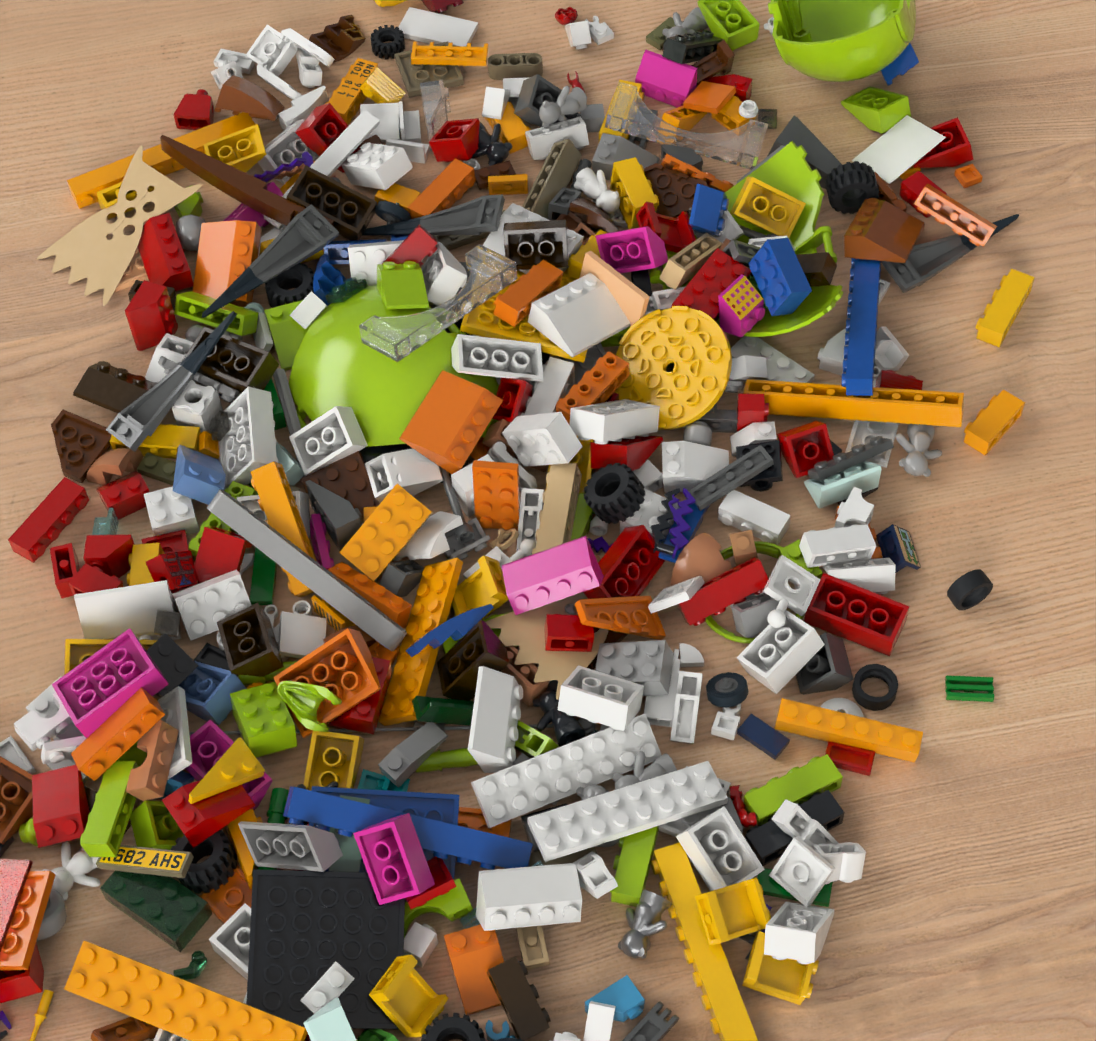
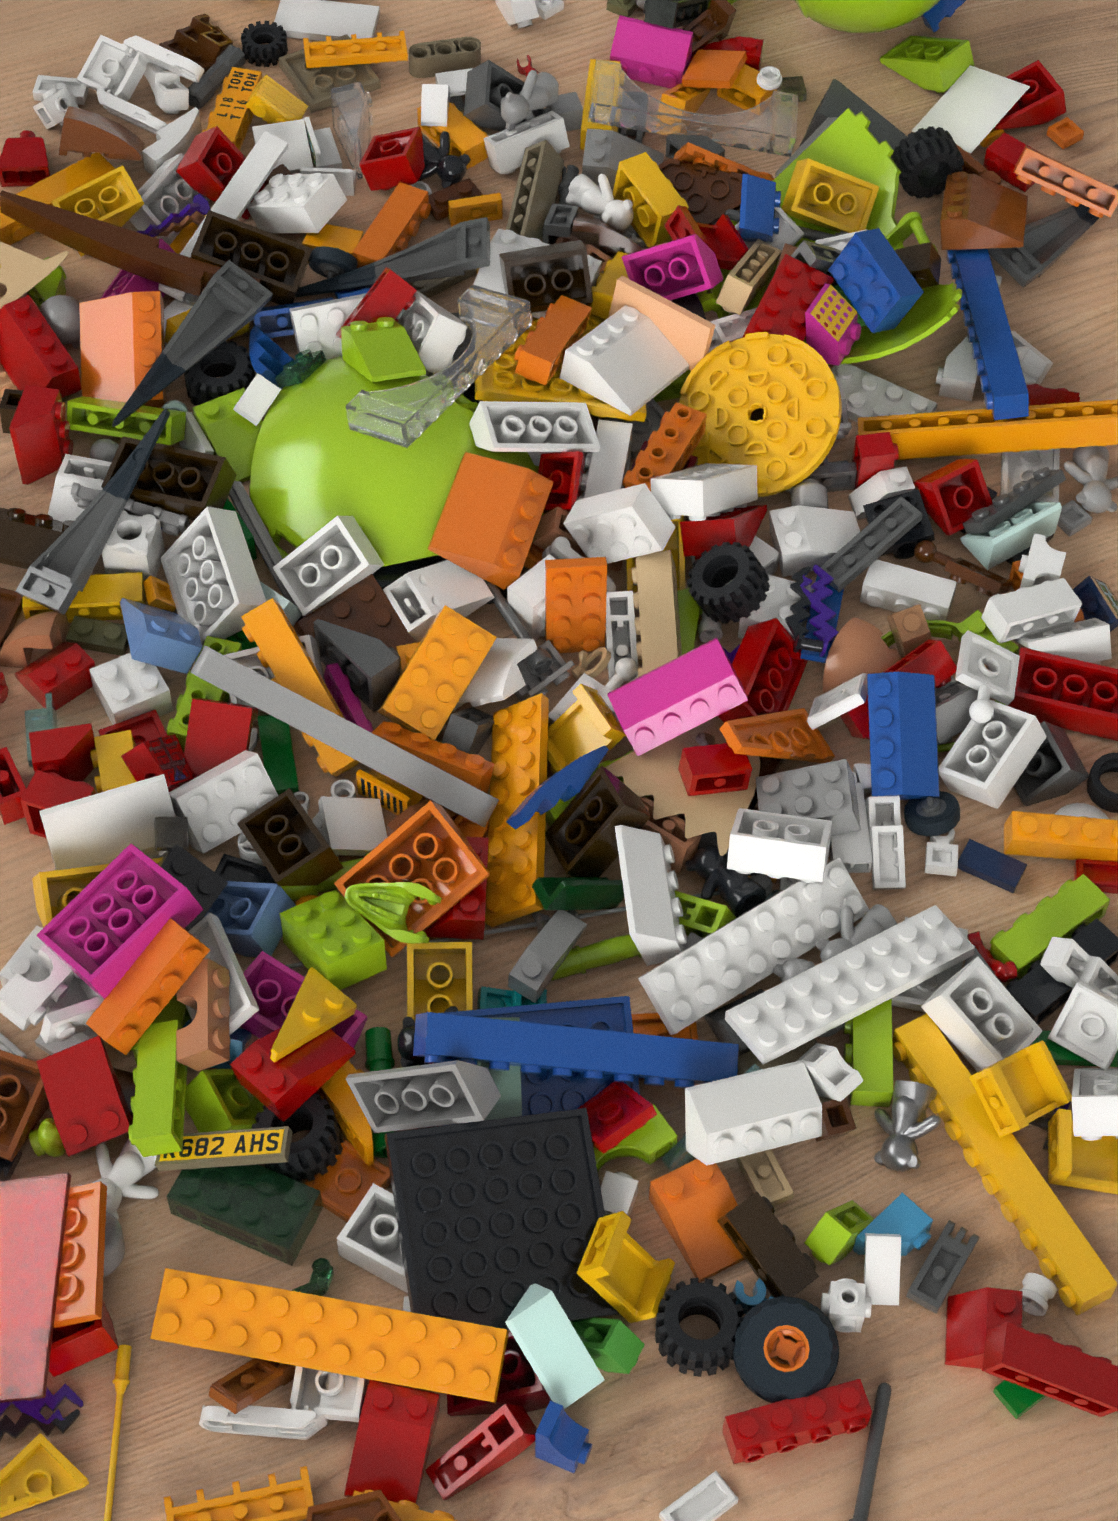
camera: 15 degrees left, 0 degrees up
(219, 426) = (170, 566): clear smoke plate -> none
(327, 988) = (517, 1275): white plate -> none
(336, 70) = (204, 90): none -> dark grey axle
(394, 859) = (573, 1089): dark pink slope -> none
(570, 996) = (837, 1232): none -> lime slope
(597, 908) = (836, 1119): none -> reddish brown plate
(714, 628) = (903, 735): none -> blue slope
(748, 367) = (858, 403): white slope -> none
(800, 507) = (963, 570): none -> reddish brown plate
(895, 477) = (1073, 518): none -> light grey tile

